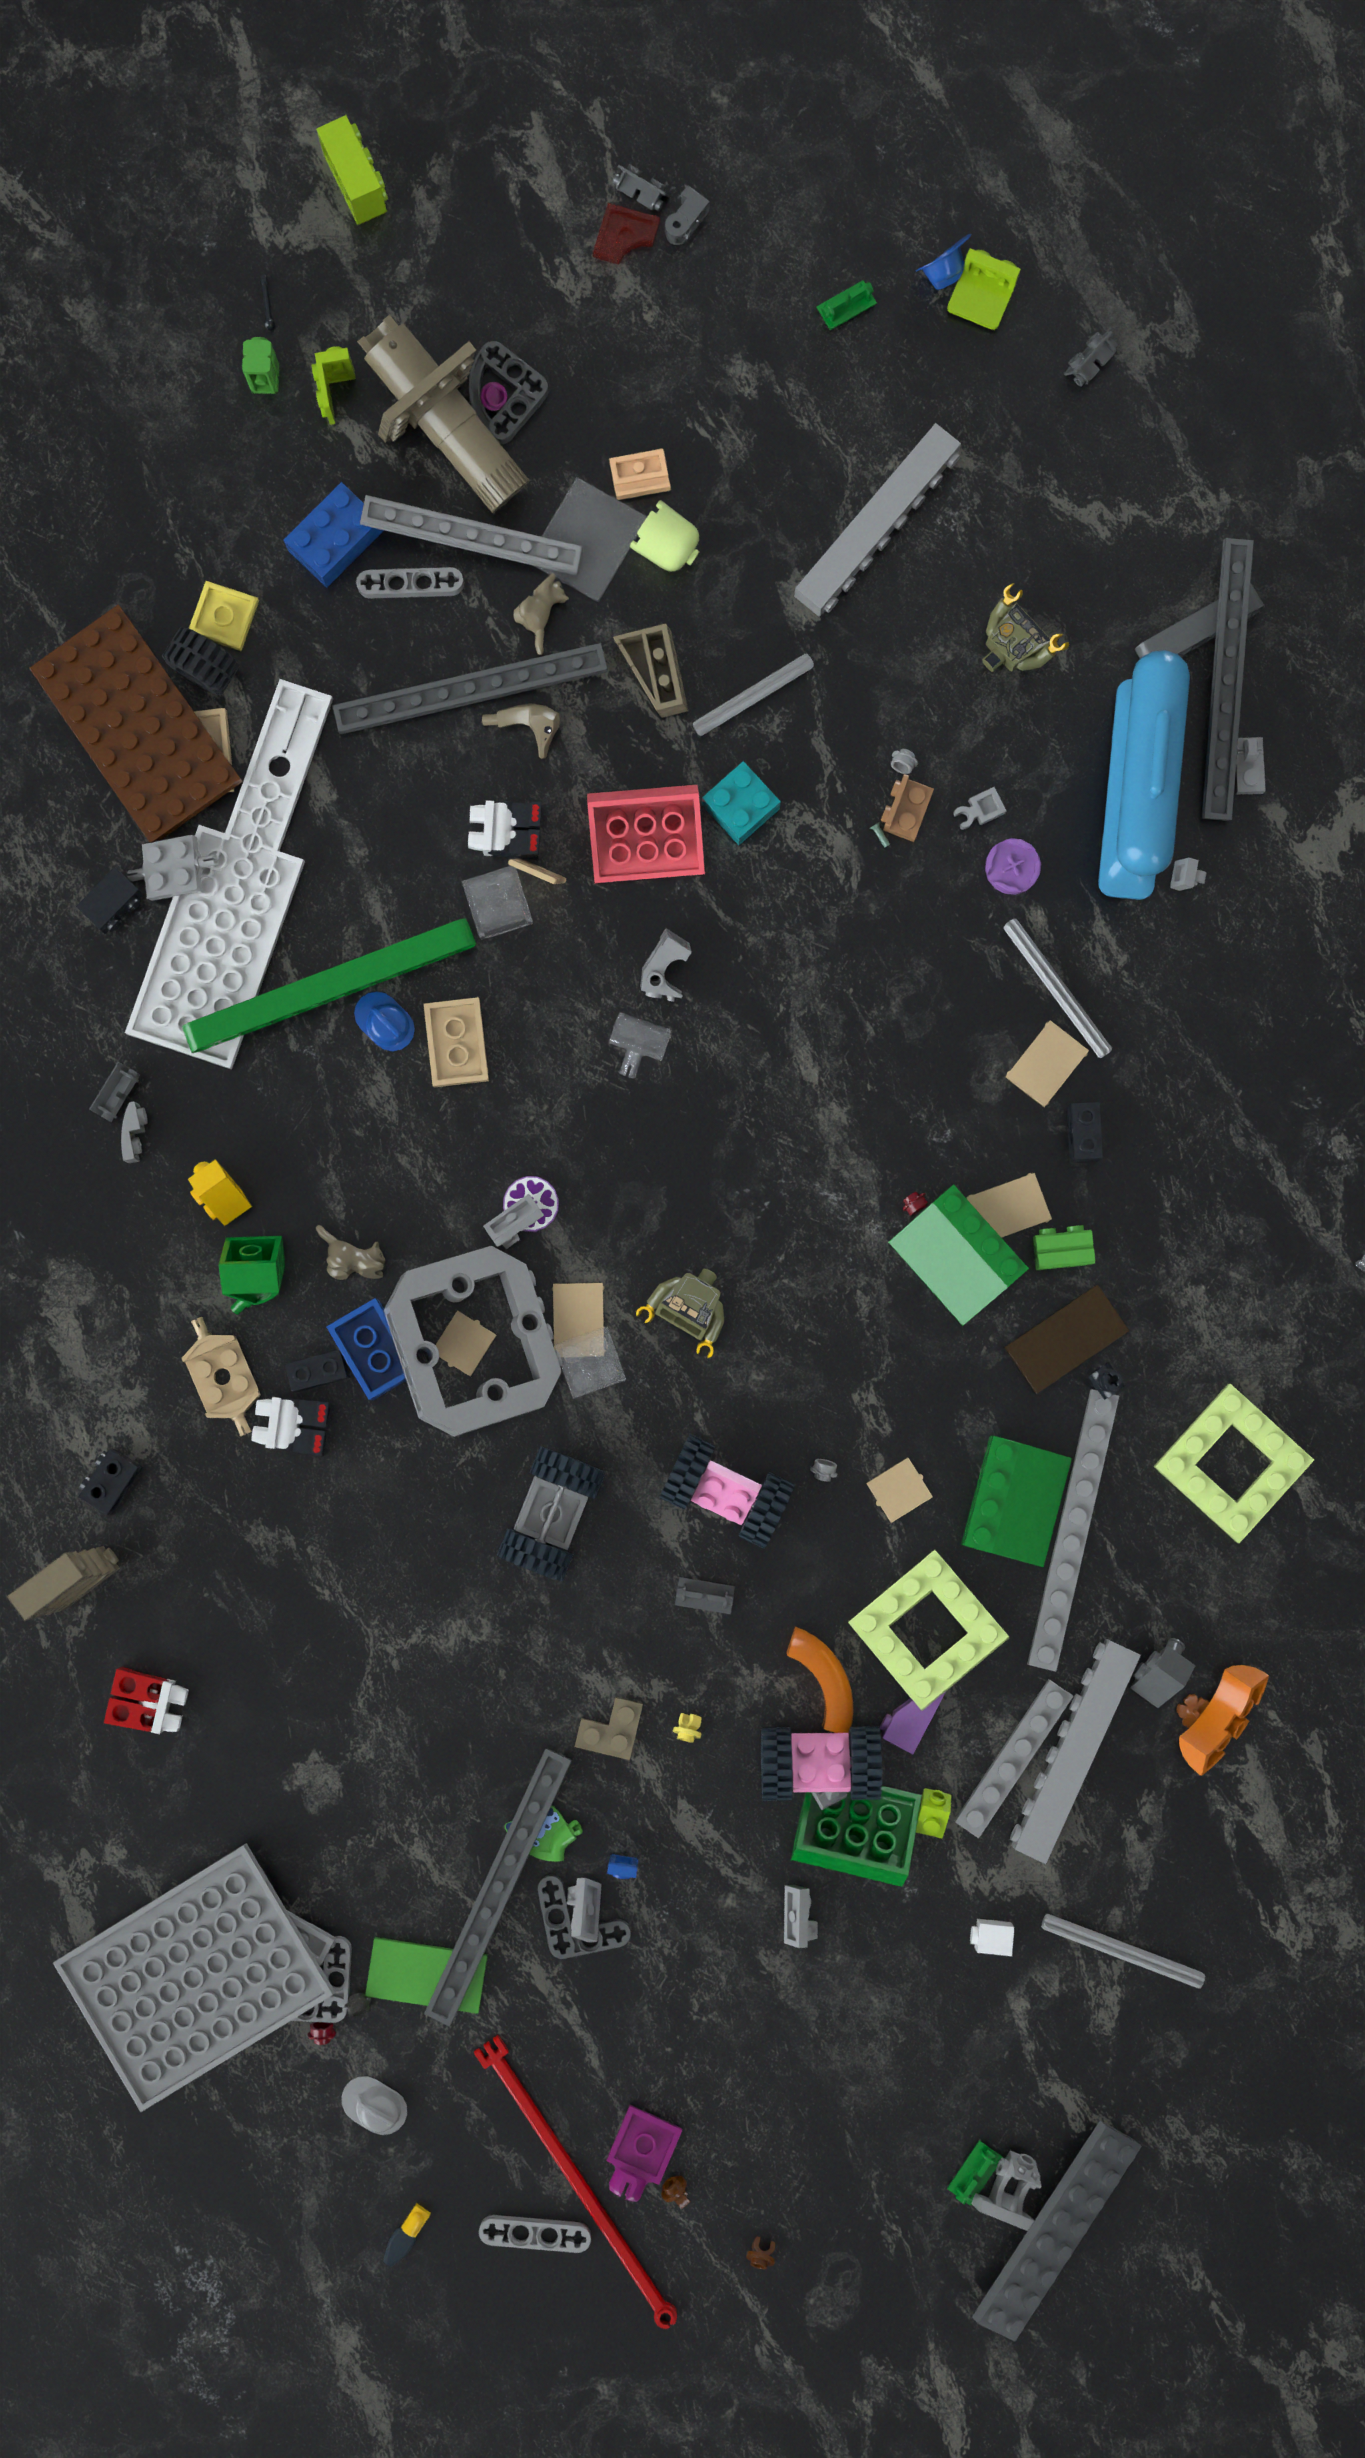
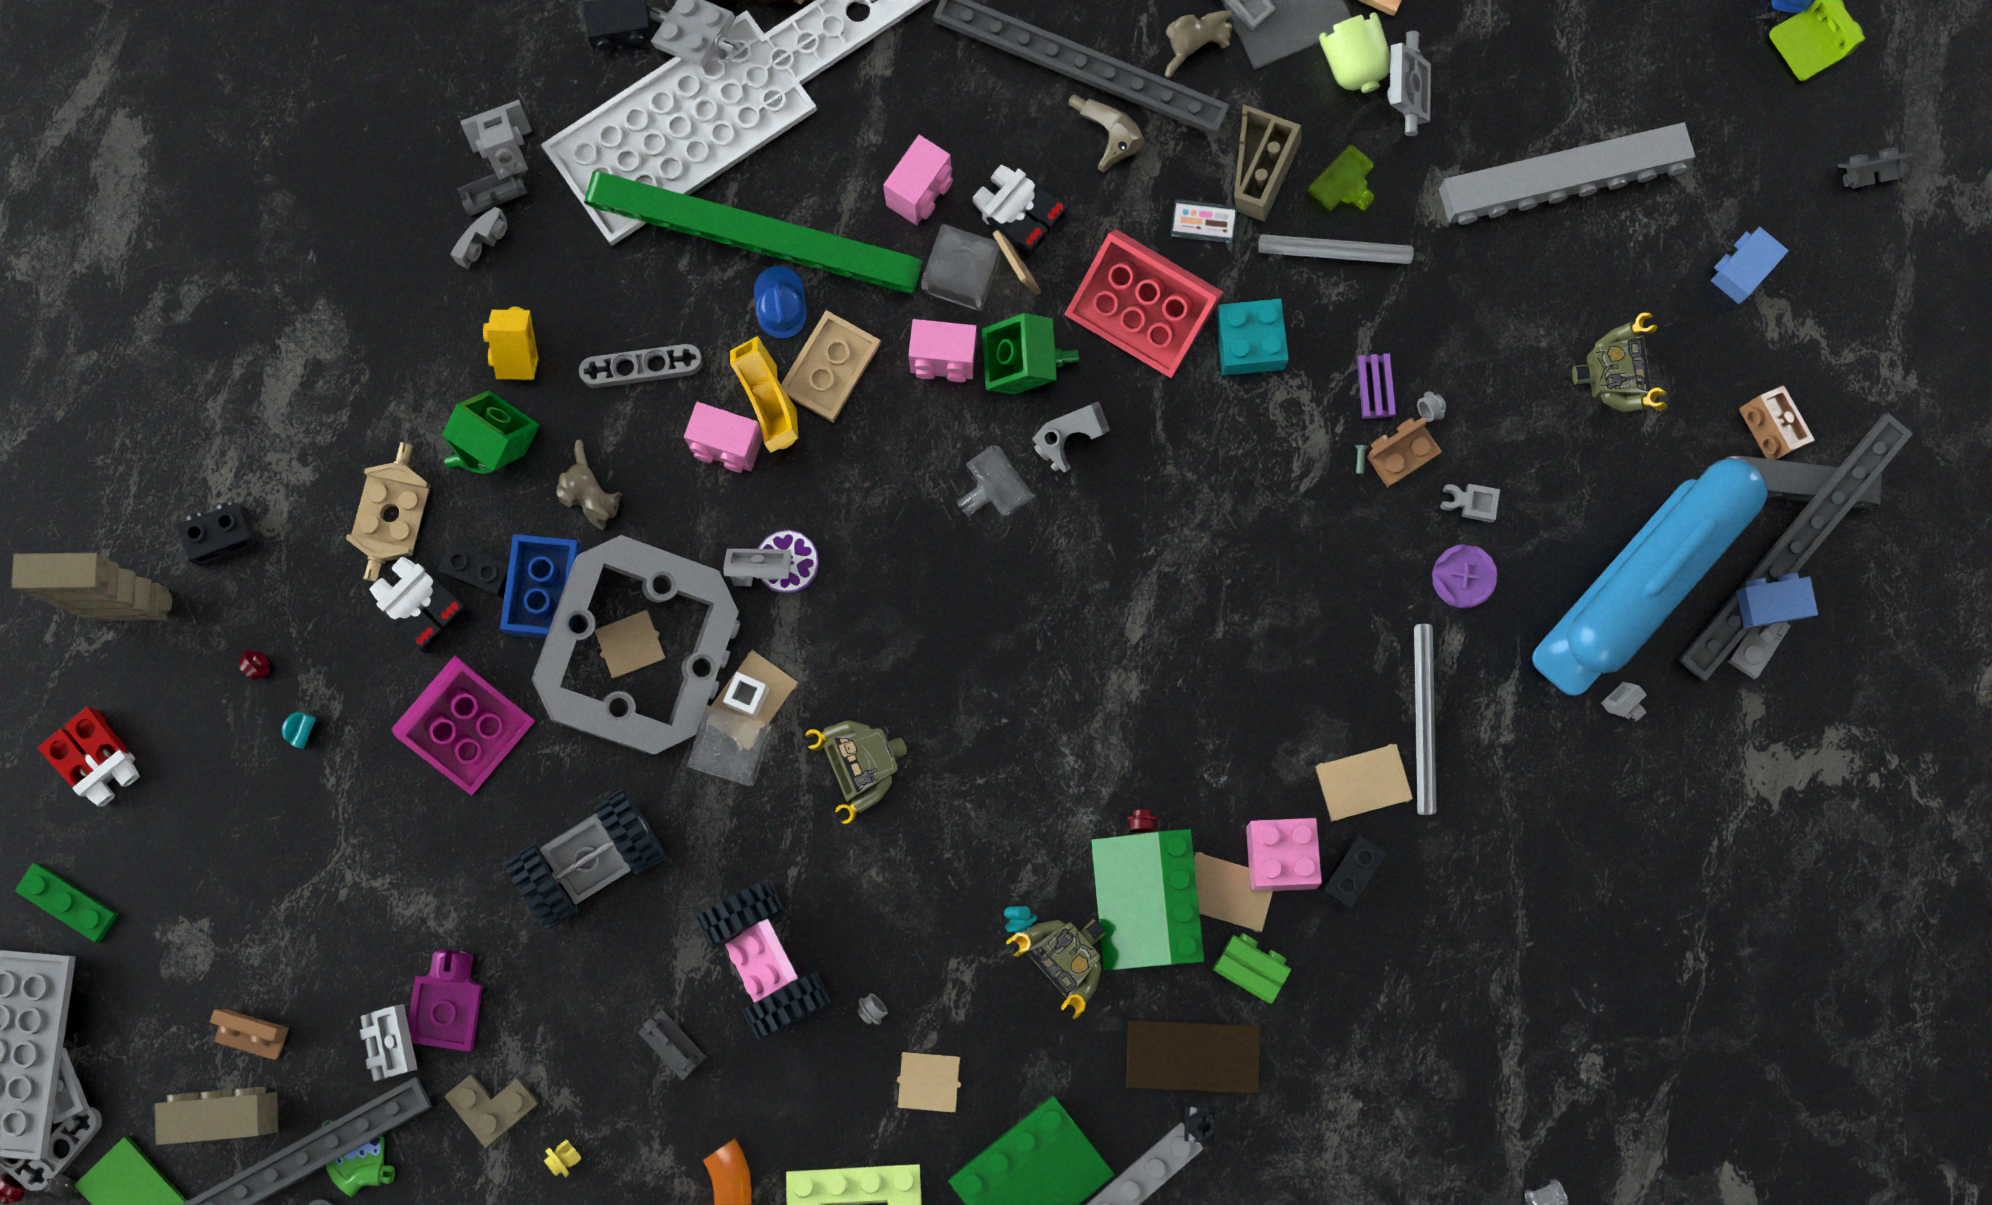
camera: 35 degrees right, 5 degrees down
(97, 1053) = (500, 141): none -> light grey tile
(206, 1814) = (66, 902): none -> green plate
(209, 1553) = (254, 664): none -> dark red plate
(276, 1574) = (297, 729): none -> teal plate
(316, 1136) = (640, 360): none -> light grey beam
(390, 1486) = (462, 725): none -> dark pink slope
(407, 1805) = (249, 1033): none -> medium nougat bracket
(420, 861) = (918, 180): none -> bright pink brick
(421, 1149) = (723, 437): none -> bright pink brick
(430, 1096) = (770, 401): none -> yellow arch
(430, 1875) = (216, 1115): none -> dark tan brick
(509, 1739) = (388, 1042): none -> light grey plate
(527, 1684) = (446, 1003): none -> magenta plate
(530, 972) = (942, 350): none -> bright pink brick
(576, 1318) = (746, 695): none -> white brick
(589, 934) = (1022, 354): none -> green piece
(644, 742) = (1203, 221): none -> slope
(720, 534) = (1410, 83): none -> light grey plate
(723, 639) = (1344, 181): none -> clear neon green hinge
(838, 756) = (1374, 360): none -> medium lavender tile
(880, 1333) = (1019, 918): none -> teal plate
(931, 1336) = (1065, 957): none -> torso
(1029, 1155) = (1283, 855): none -> bright pink brick
(1053, 495) = (1749, 264): none -> medium blue brick
(1152, 598) = (1776, 423): none -> medium nougat bracket
(1242, 730) = (1776, 602): none -> medium blue brick

